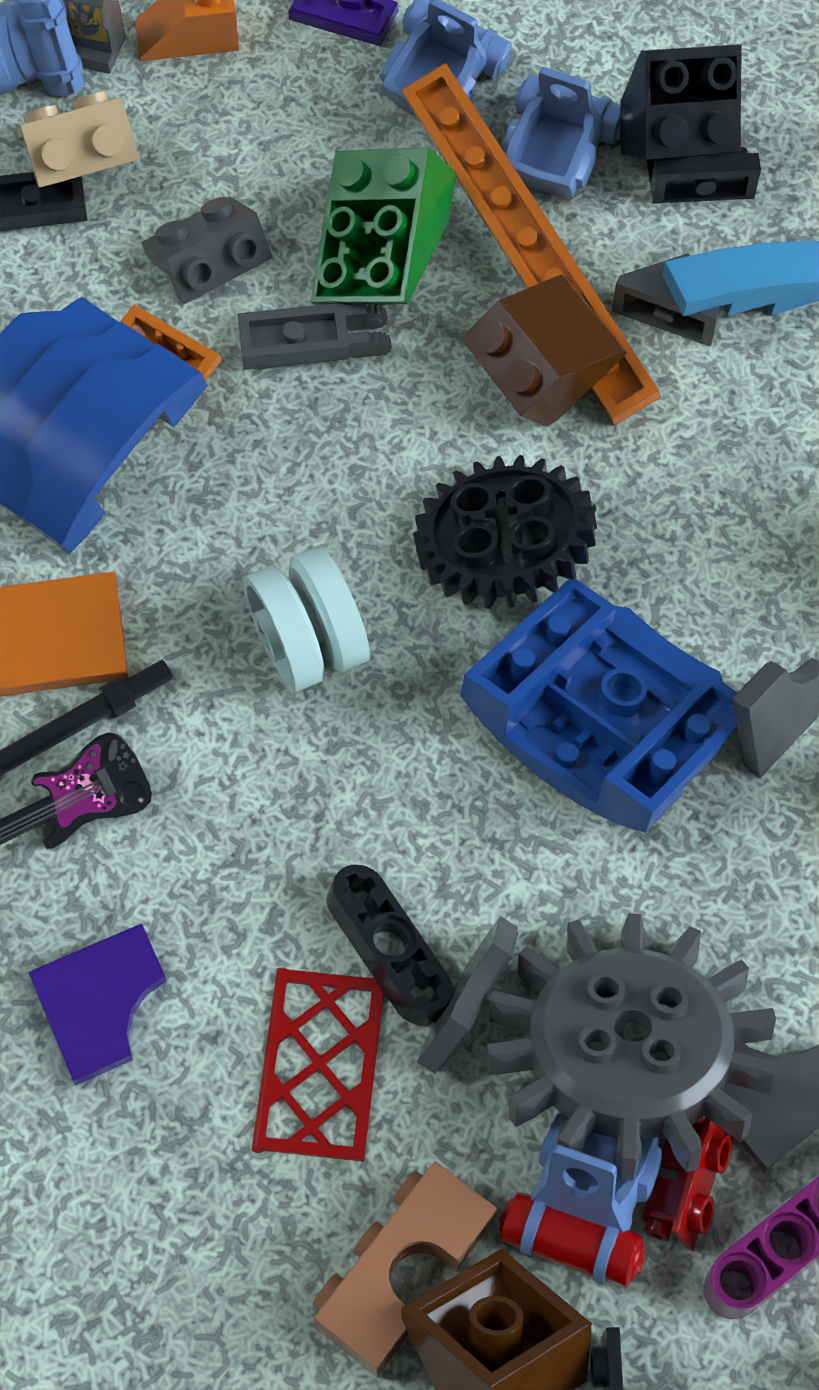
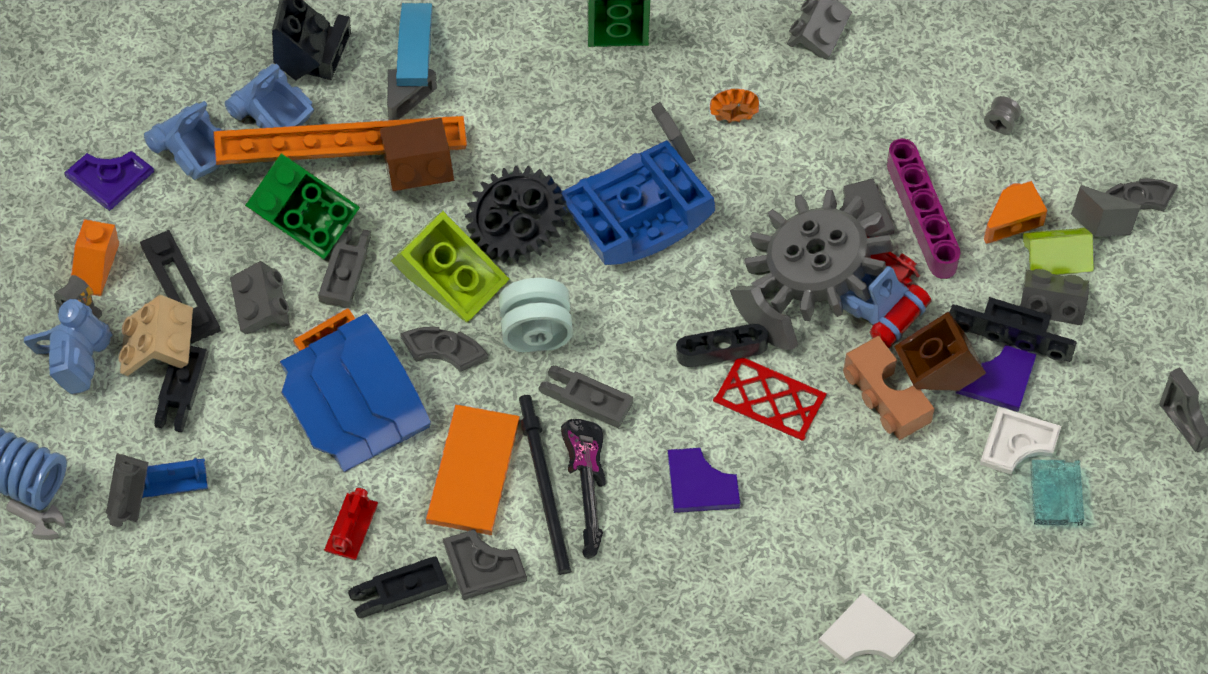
camera: 70 degrees left, 5 degrees down
(141, 188) = (163, 250): none -> black container
(202, 766) = (588, 396): none -> dark grey hinge
(226, 522) = (444, 345): none -> dark grey tile
(364, 474) = (450, 267): none -> lime slope

